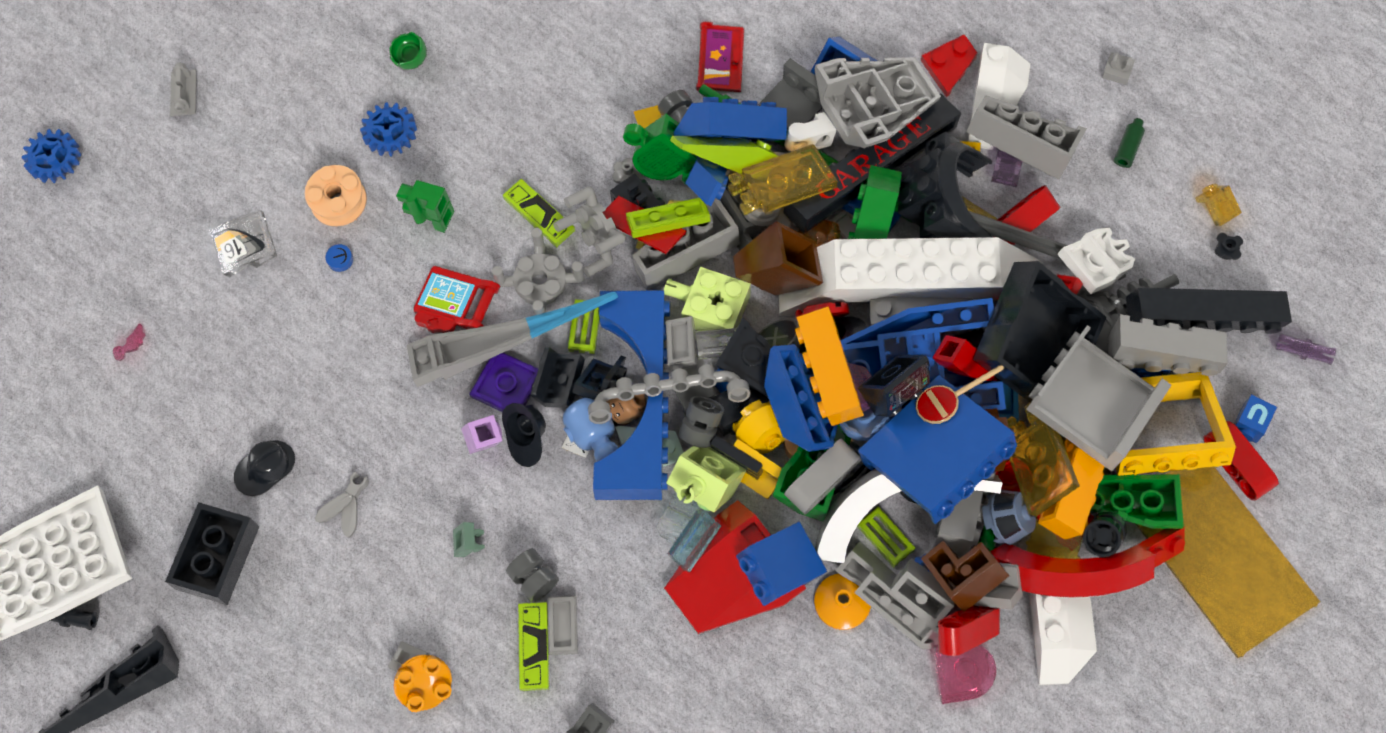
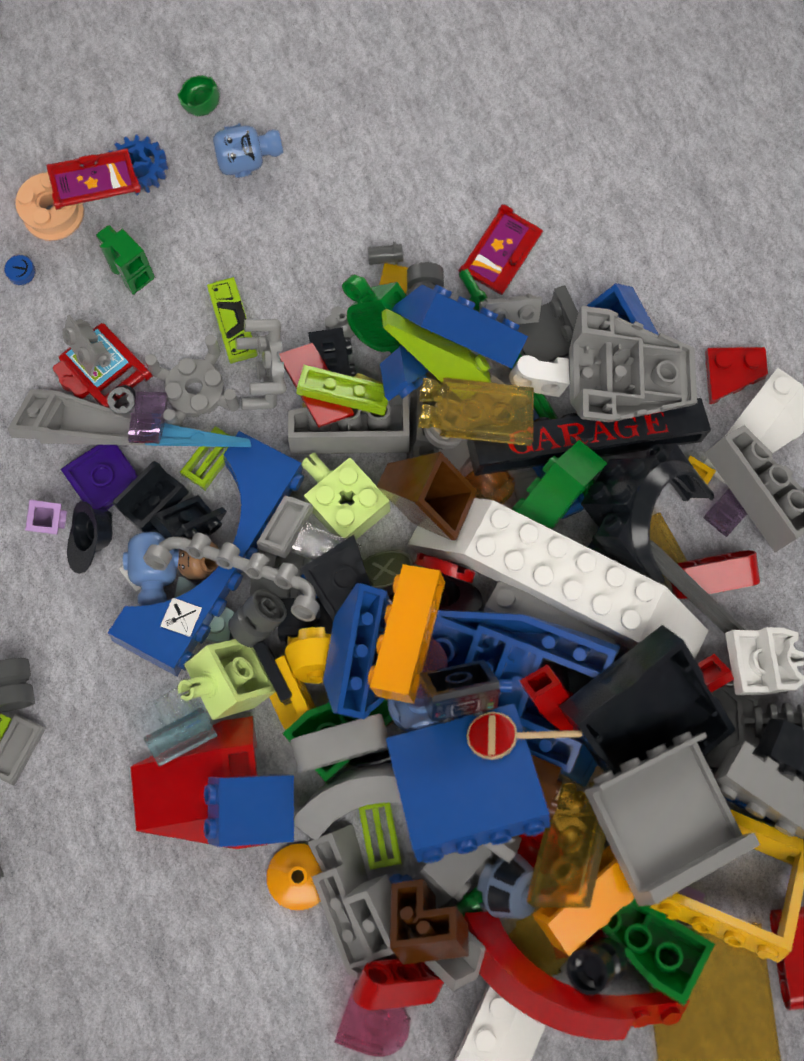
camera: 25 degrees right, 5 degrees up
(375, 149) = (79, 184): none -> door
(430, 289) = (80, 338): none -> light grey hinge
(470, 76) = (241, 149): none -> medium blue piece
(496, 307) = (112, 399): none -> bush
(521, 316) = (148, 419): none -> clear purple slope
(632, 103) = (385, 254): none -> dark grey pin
(643, 448) = (181, 617): none -> white sticker
(766, 91) = (516, 309): none -> light grey hinge

